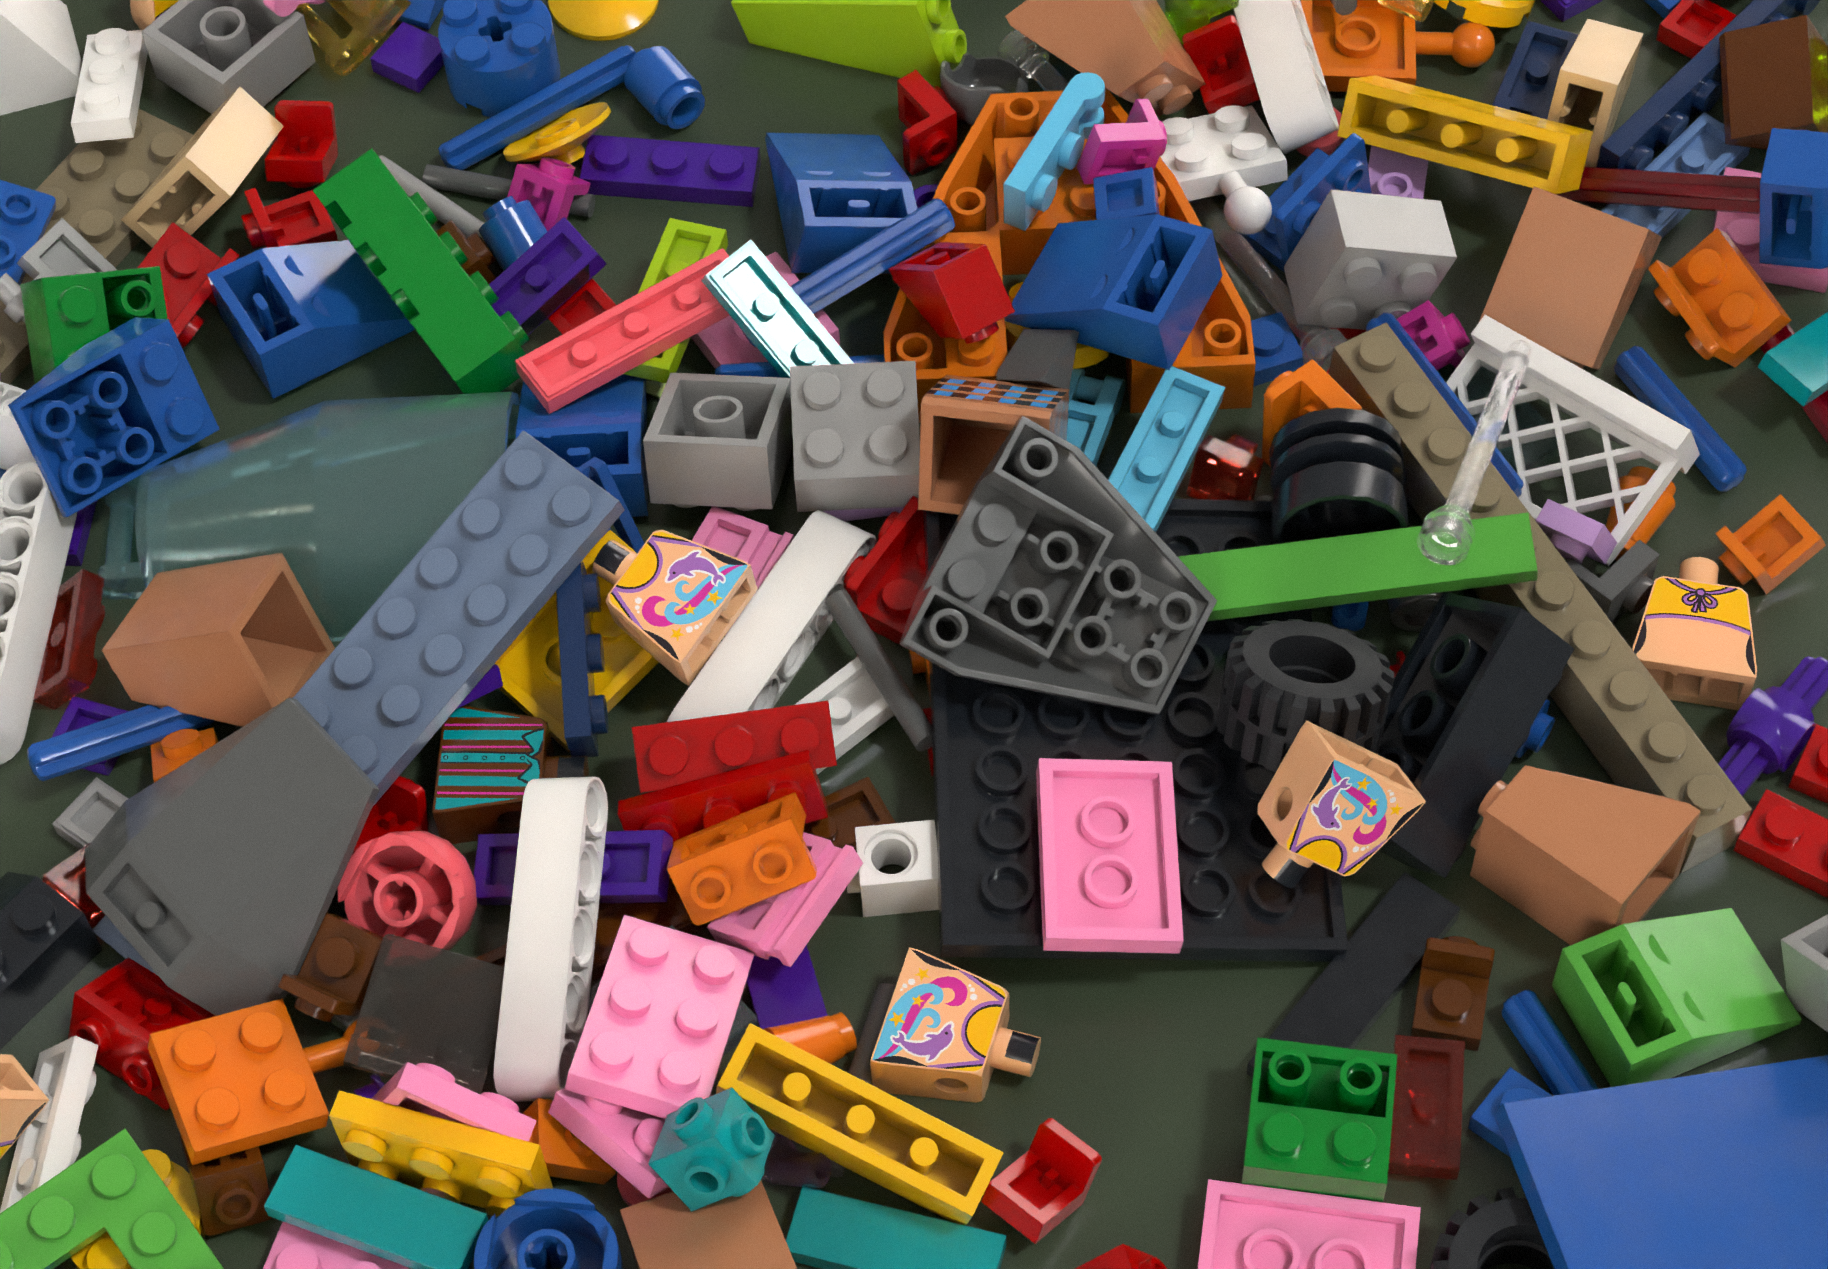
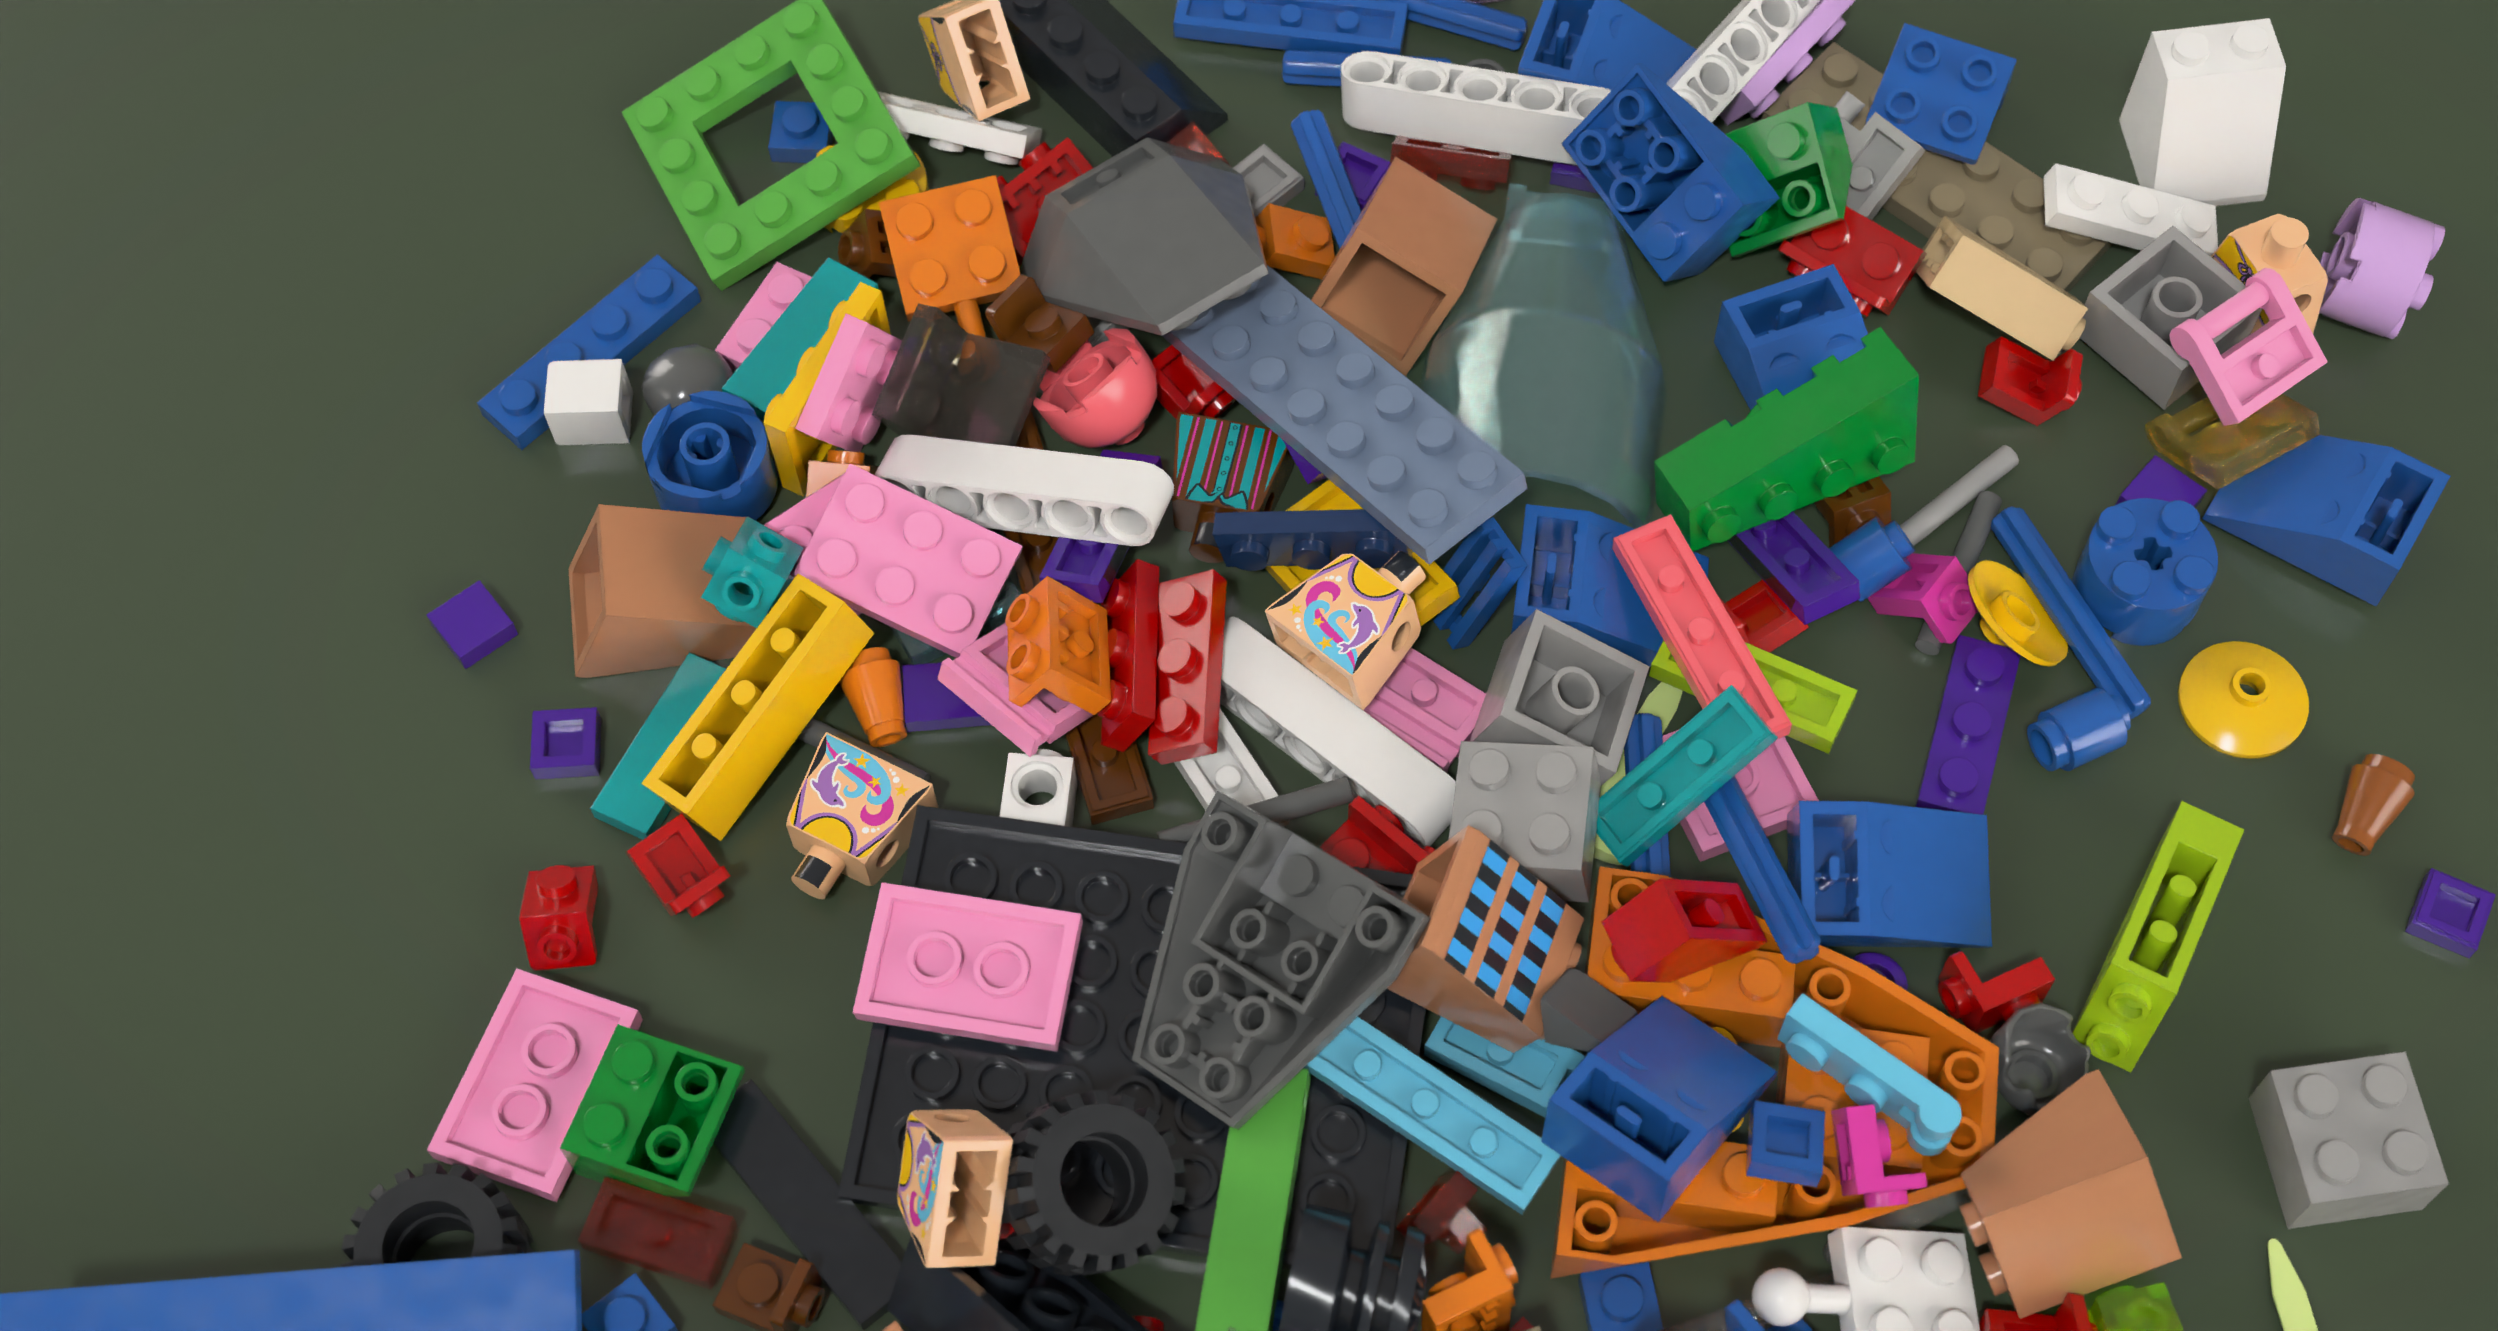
camera: 100 degrees right, 5 degrees up
(287, 222) = (1925, 344): red bracket -> none

